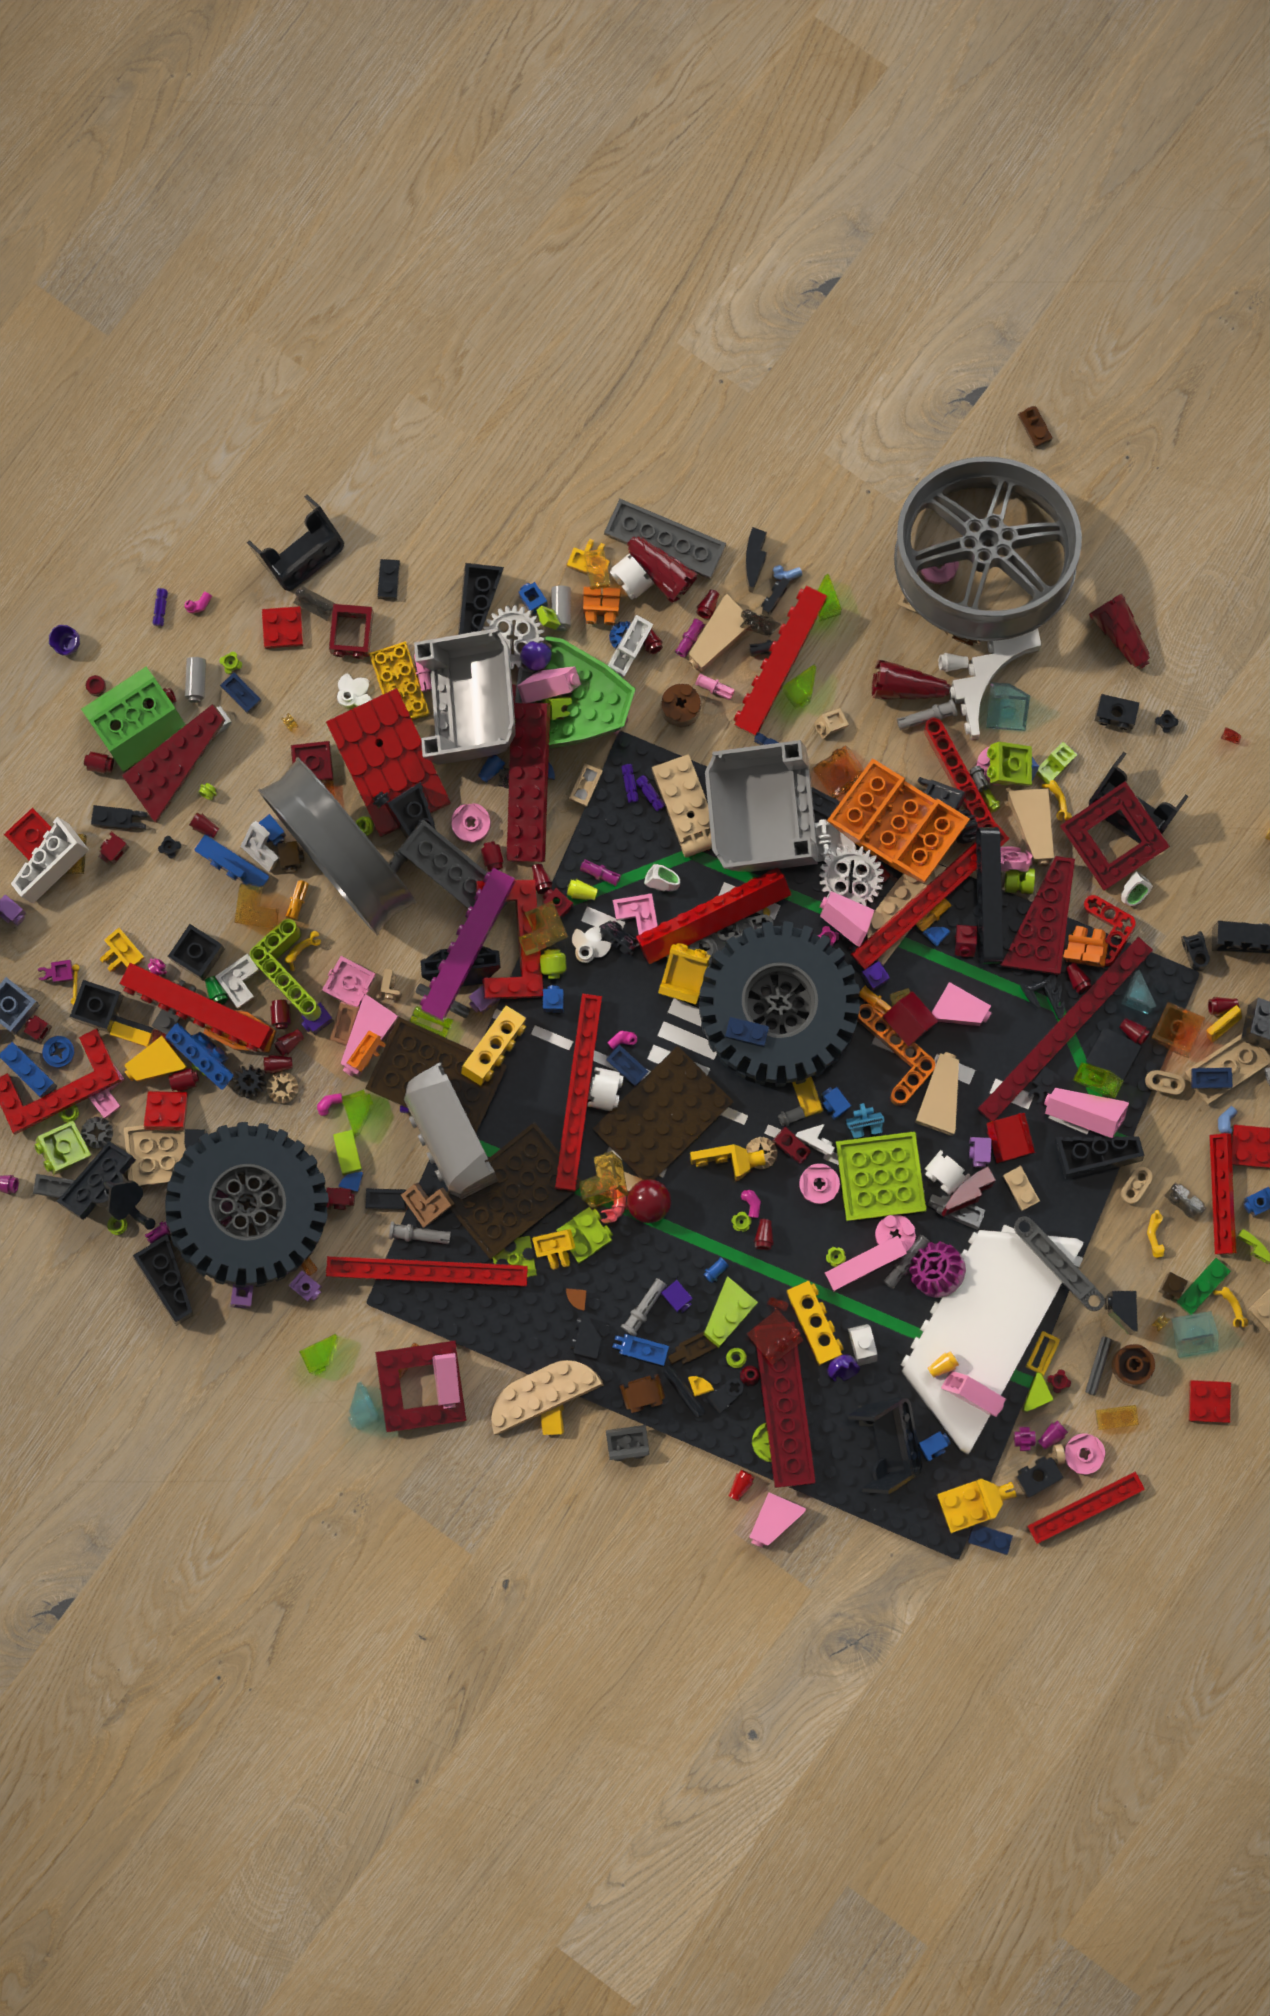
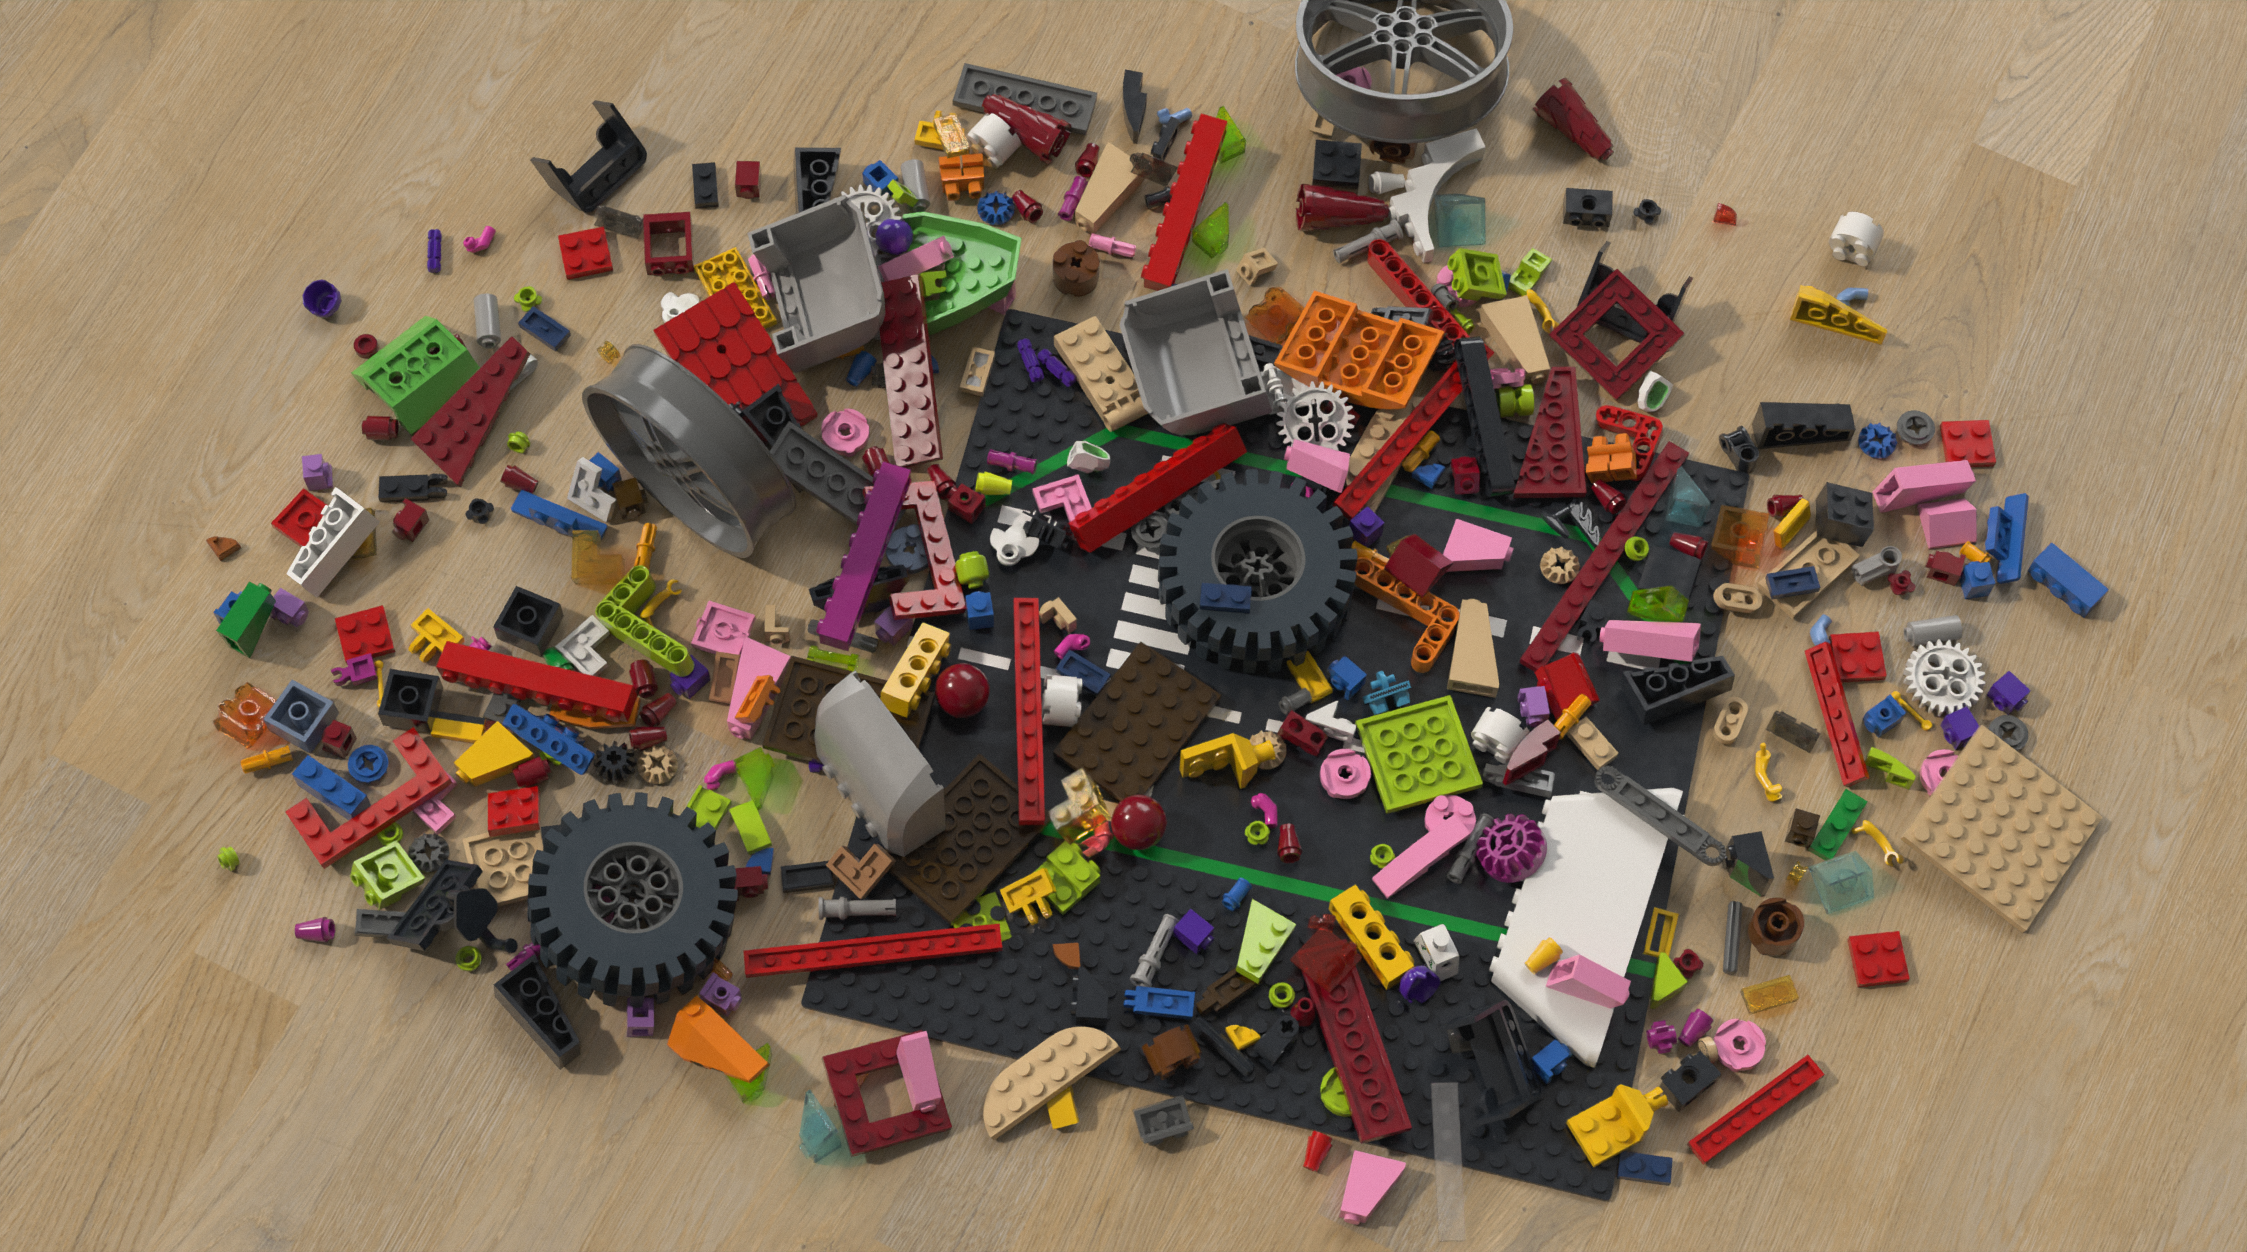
camera: 15 degrees left, 15 degrees down
(44, 795) = (316, 472): none -> medium lavender brick
(67, 940) = (365, 633): none -> red plate
(292, 1326) = (710, 1041): none -> orange wedge
(314, 1133) = (709, 807): none -> lime plate
(424, 581) = (748, 179): none -> dark red brick
(500, 943) = (897, 545): none -> sand blue plate
(528, 1068) = (962, 690): none -> dark red piece
(546, 928) = (956, 528): clear yellow brick -> none
(618, 1015) = (1060, 614): none -> tan bracket
(630, 645) = (1007, 204): white slope -> none
(684, 973) = (1135, 554): yellow panel -> none
(839, 1511) = (1448, 1162): none -> clear tile
(913, 644) = (1337, 165): none -> black brick
(1008, 1164) = (1572, 714): none -> light orange axle
(1022, 1039) = (1556, 574): none -> tan gear
(1095, 1030) = (1641, 546): none -> lime plate

